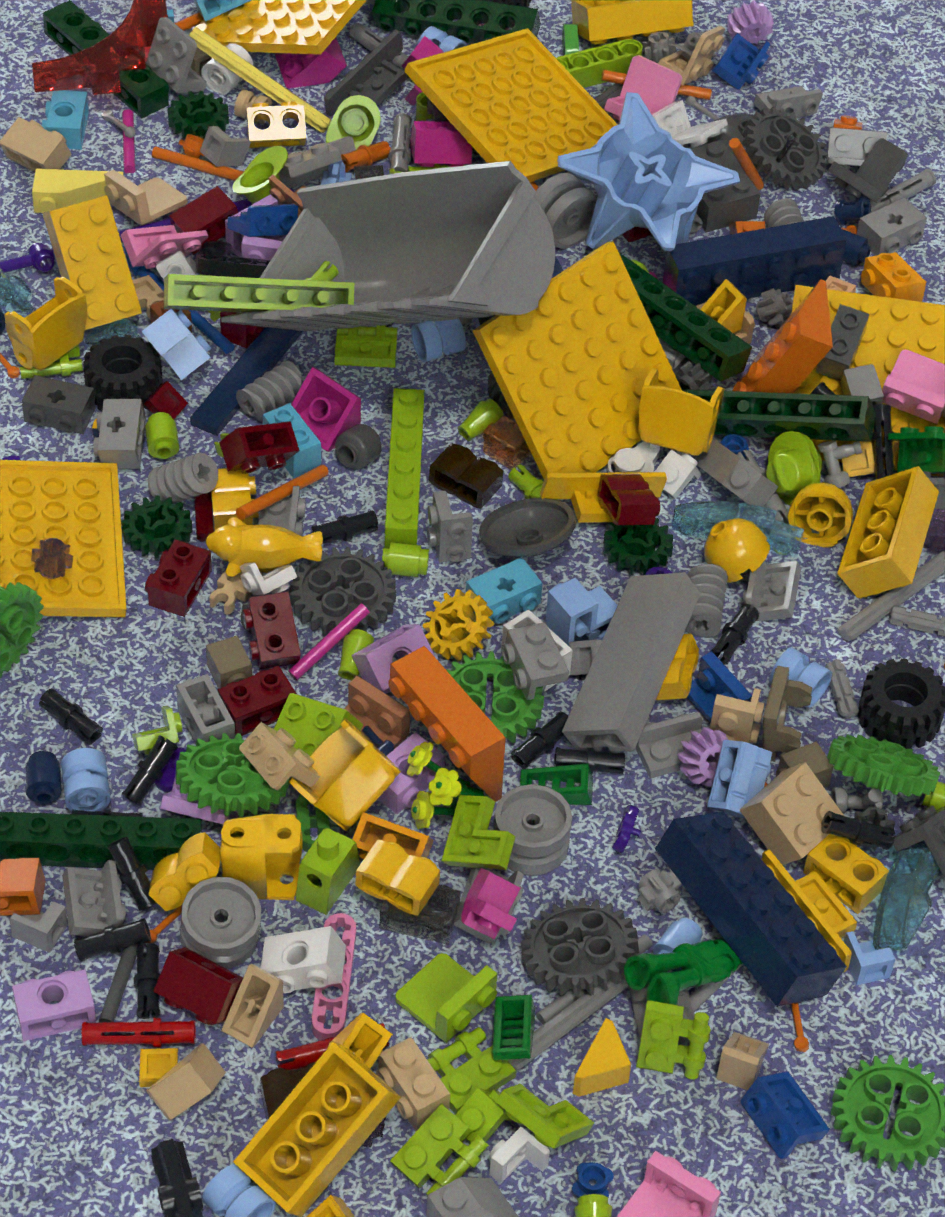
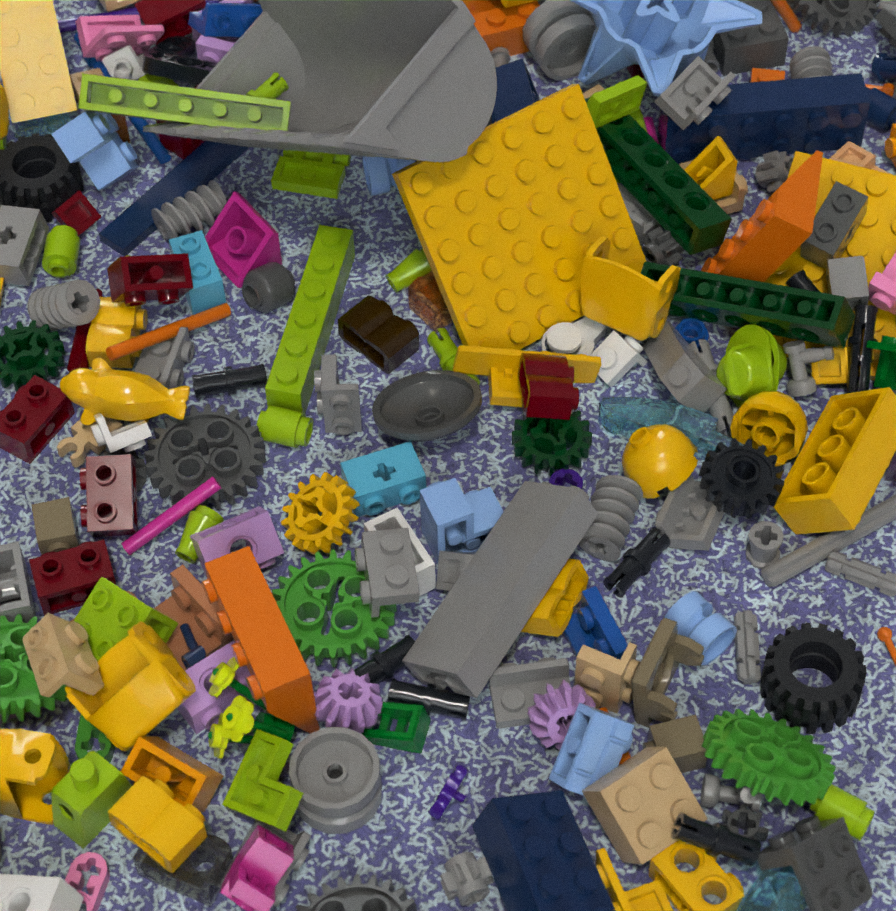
camera: 15 degrees right, 5 degrees up
(528, 765) = (348, 701): none -> lavender gear
(638, 254) = (616, 101): none -> lime plate
(698, 244) = (692, 92): none -> light grey bracket
(809, 555) = (741, 479): none -> black gear
(838, 603) = (764, 544): none -> light grey bush

